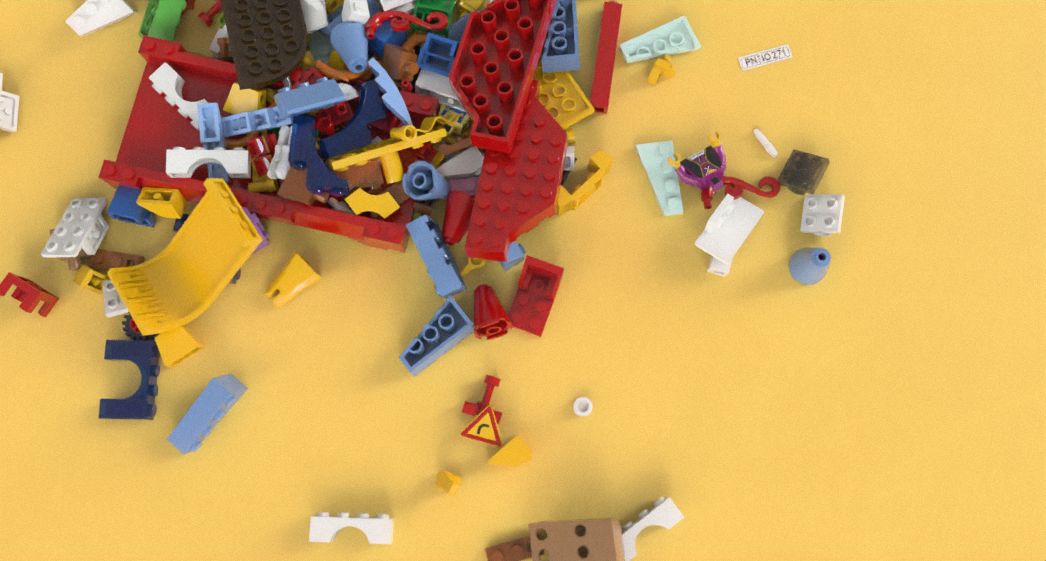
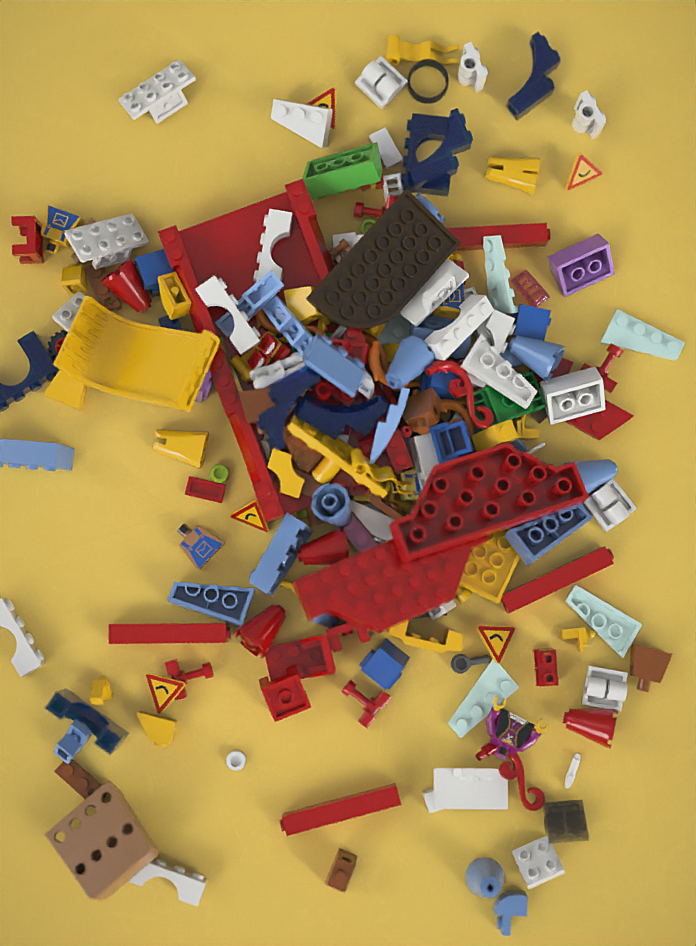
camera: 50 degrees right, 5 degrees up
(38, 268) = (54, 227): none -> torso
(129, 237) = (128, 286): none -> red cone
(337, 266) = (219, 473): none -> lime tile
(342, 286) = (205, 489): none -> red tile
(383, 319) = (199, 544): none -> torso
(389, 261) = (251, 515): none -> piece
(439, 393) = (169, 633): none -> red brick
(458, 19) = (494, 436): none -> yellow slope
(464, 508) = (68, 705): none -> arch
(475, 534) = (73, 741): none -> medium blue brick
(543, 231) = (345, 629): none -> red panel
(555, 327) = (285, 695): none -> red panel
(583, 232) = (384, 664): none -> blue plate
(610, 267) = (371, 705): none -> red bar
(622, 132) = (496, 639): none -> piece
(624, 173) = (461, 663): none -> dark grey plate
(674, 107) = (547, 671): none -> red hips
(679, 345) = (340, 809): none -> red brick
(716, 75) = (604, 688): none -> white plate
(719, 31) = (648, 665): none -> dark orange torso
(731, 377) = (341, 870): none -> dark orange torso
(739, 100) = (592, 724): none -> red cone
(765, 57) = (653, 720): white sticker -> none
(842, 261) = (507, 905): none -> medium blue brick

